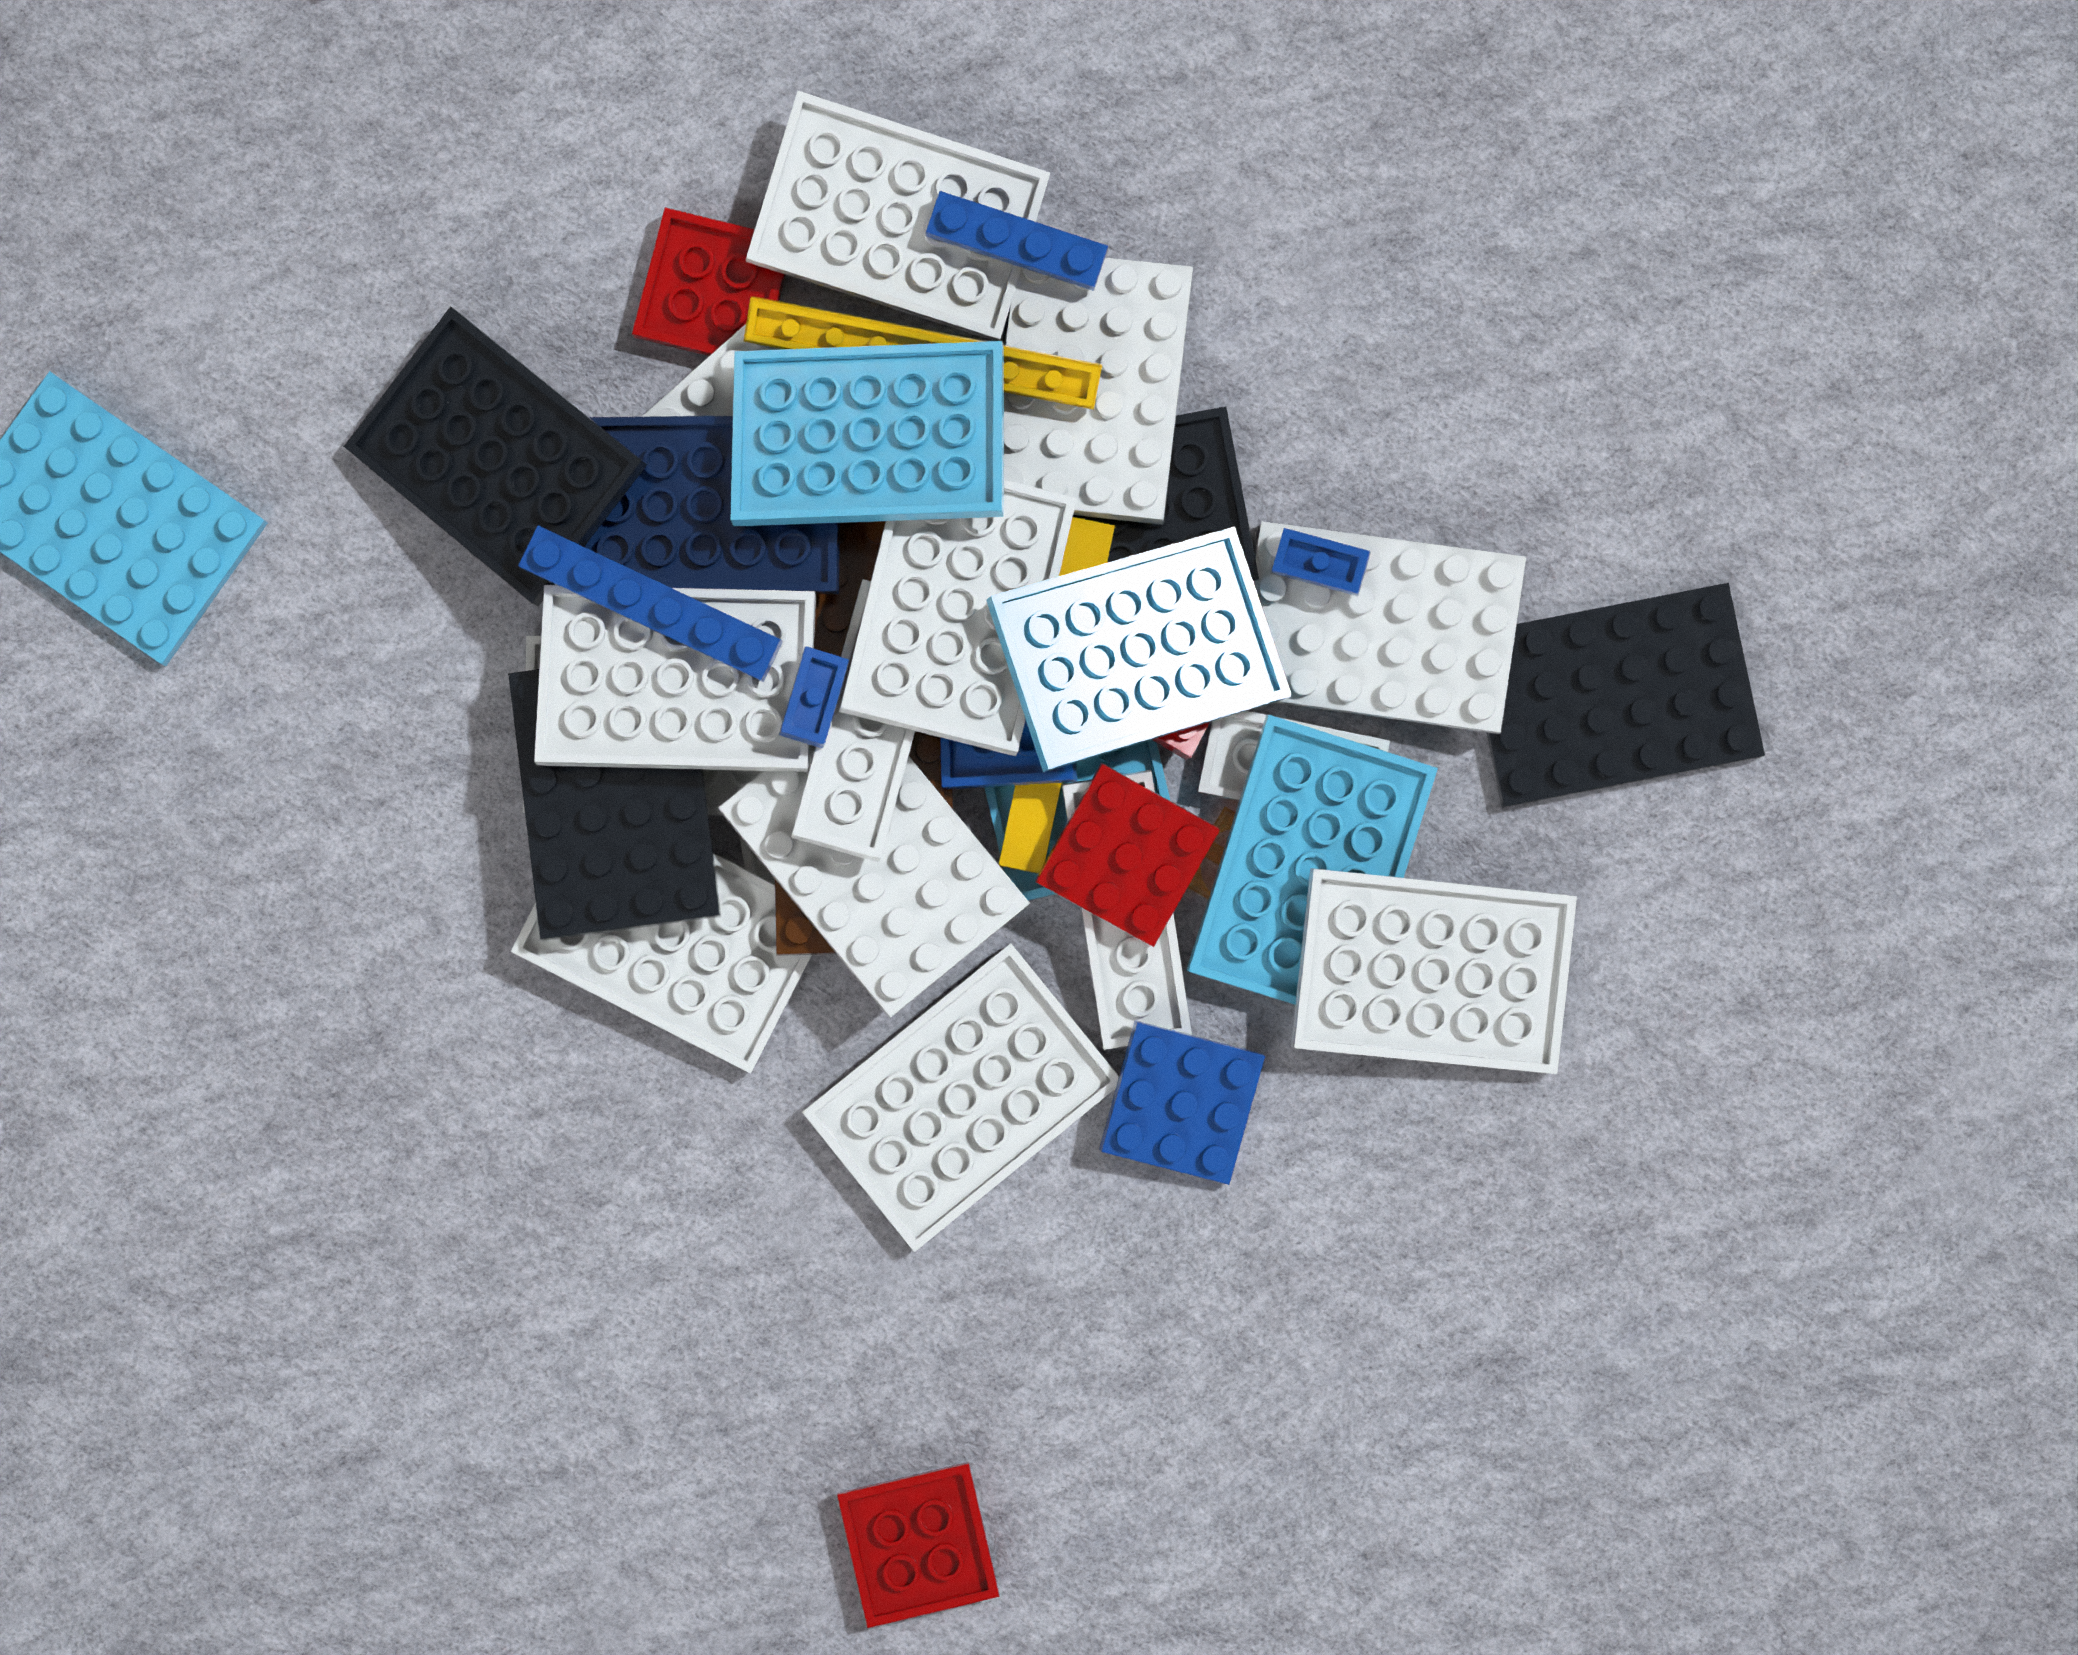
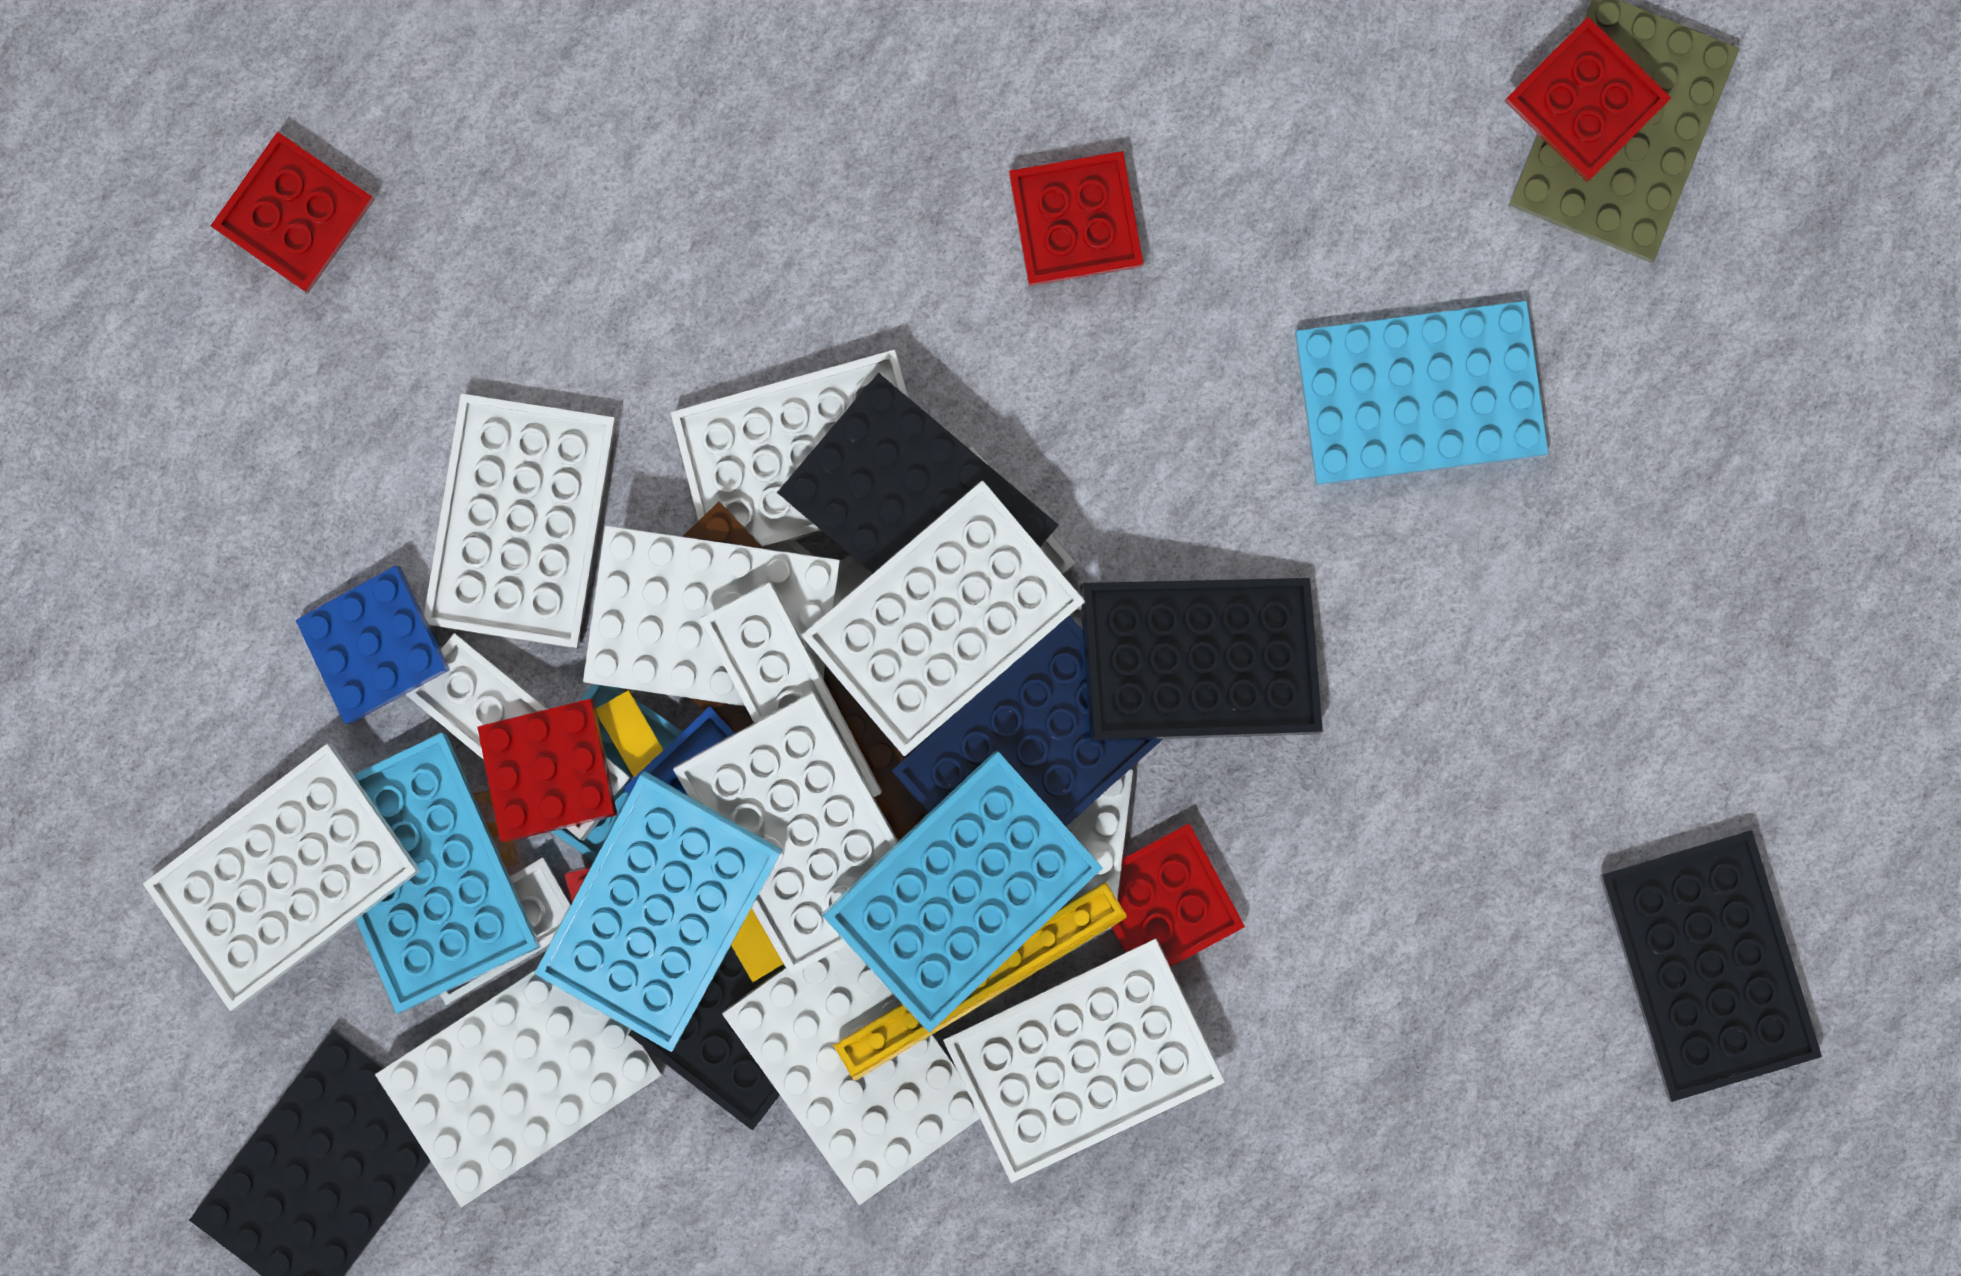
camera: 135 degrees right, 0 degrees up
(257, 928) = (1076, 218): none -> red plate
(650, 603) = (1002, 650): blue plate -> none
(814, 697) = (837, 684): blue plate -> none
(1016, 240) = (988, 1114): blue plate -> none
(1321, 562) = (593, 1080): blue plate -> none

